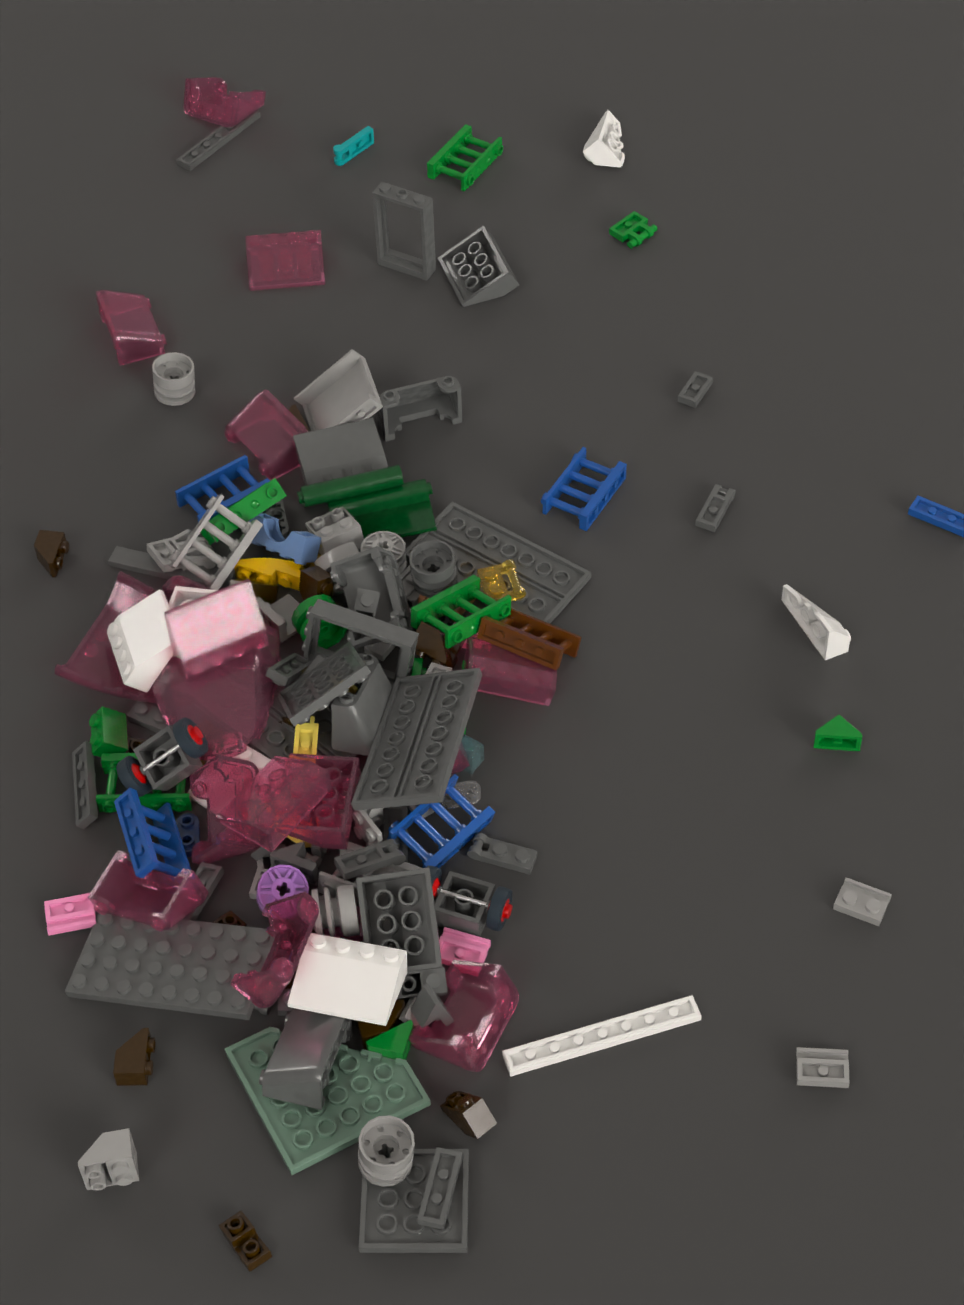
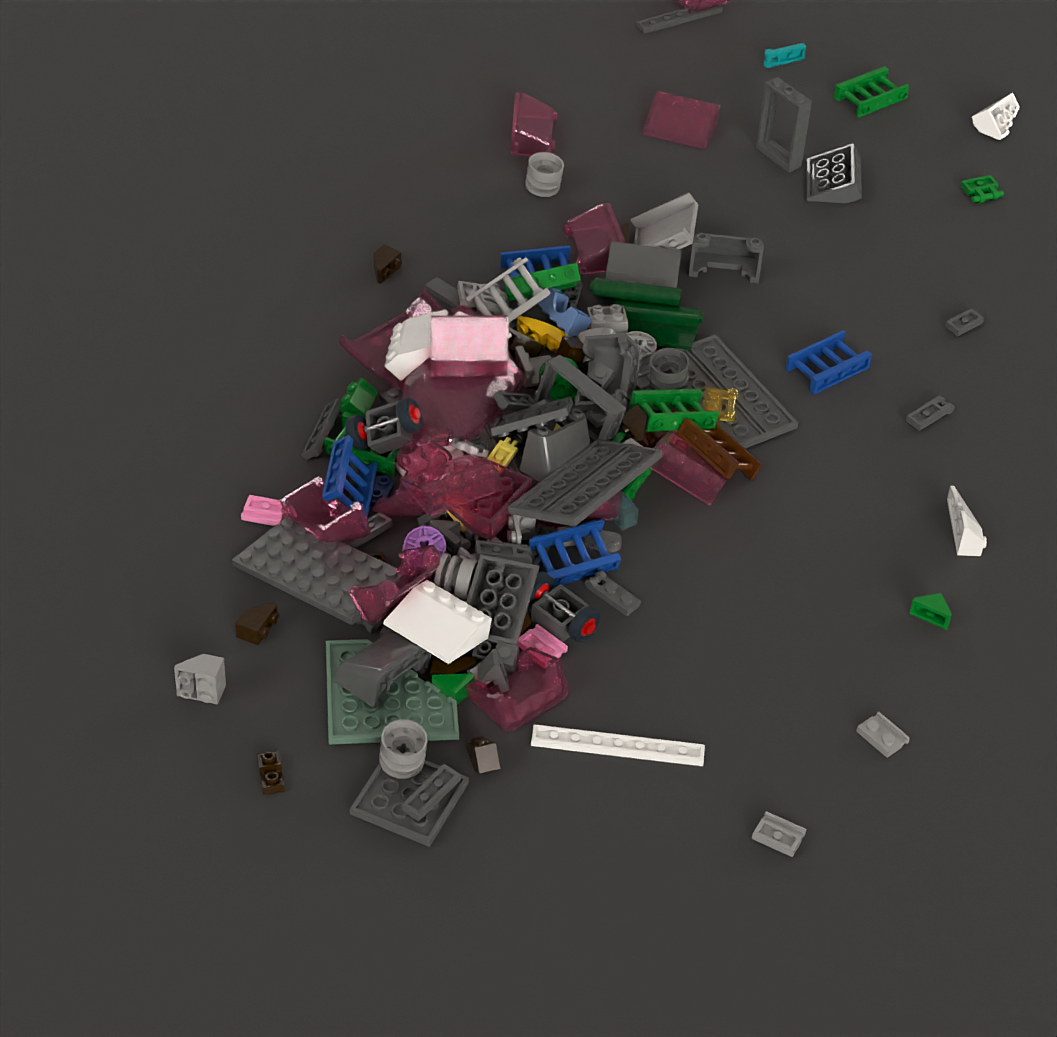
camera: 20 degrees right, 5 degrees down
(269, 747) = (470, 447): none -> light grey tile

